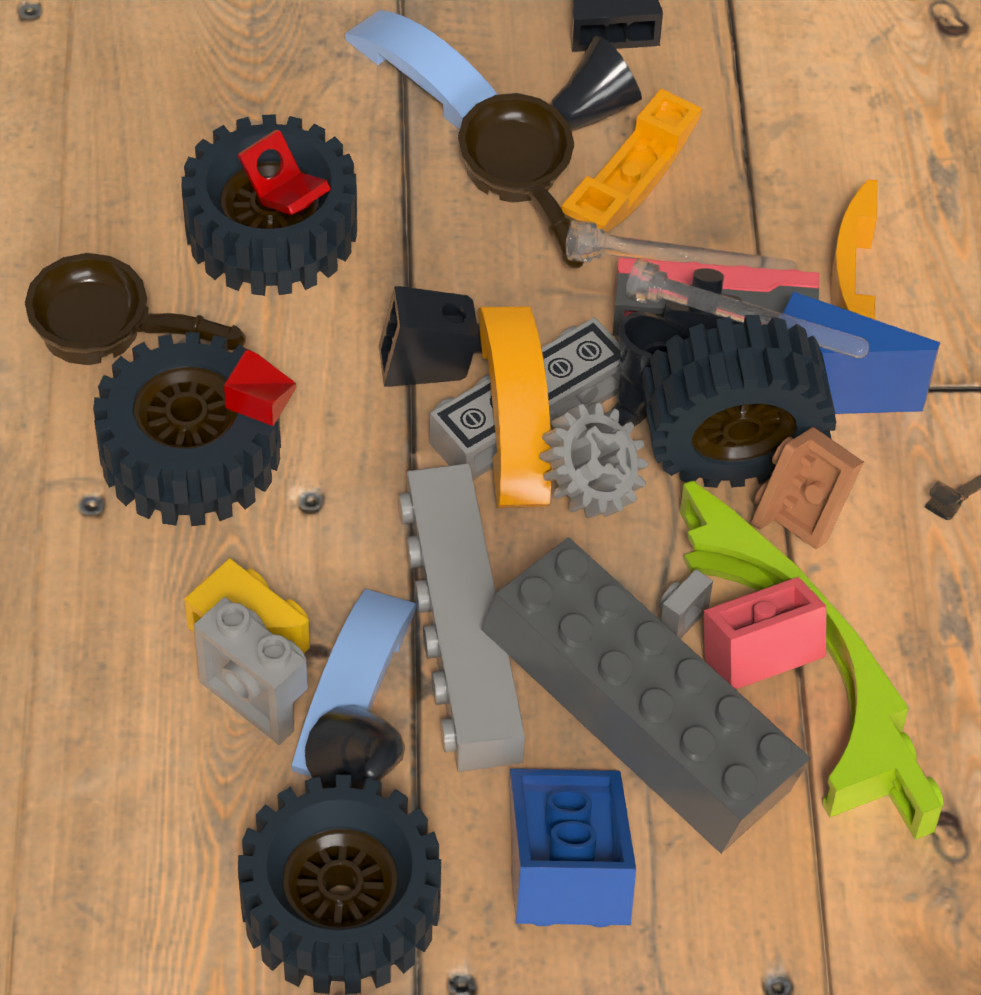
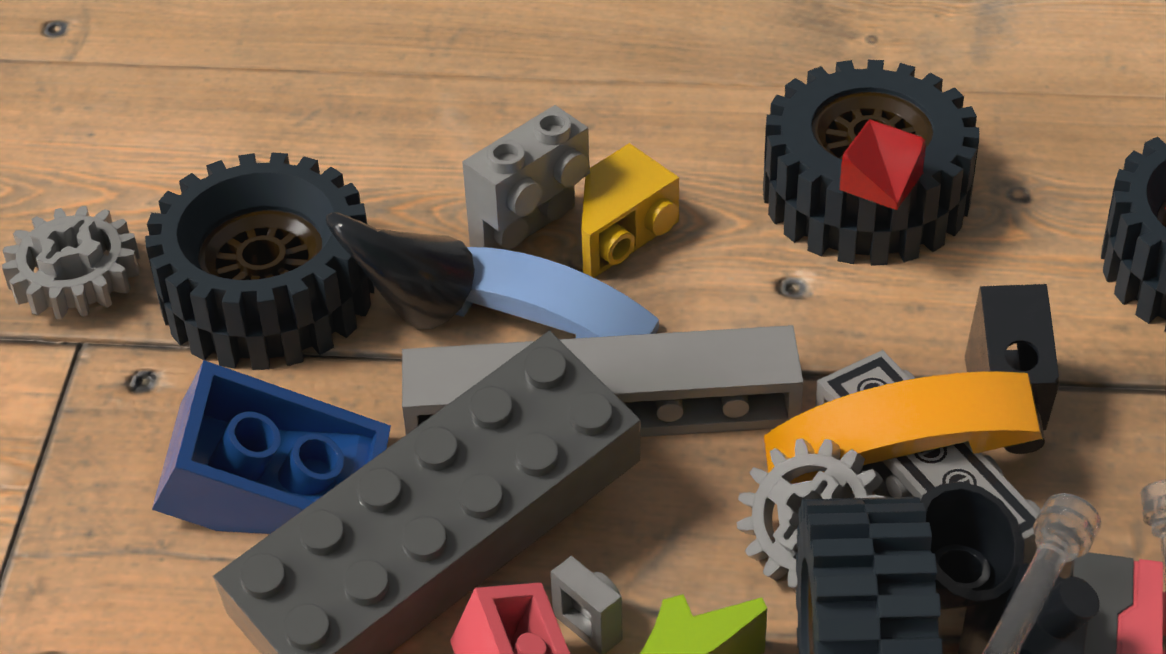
camera: 100 degrees right, 10 degrees down
(97, 306) = (1040, 102): dark brown piece -> none

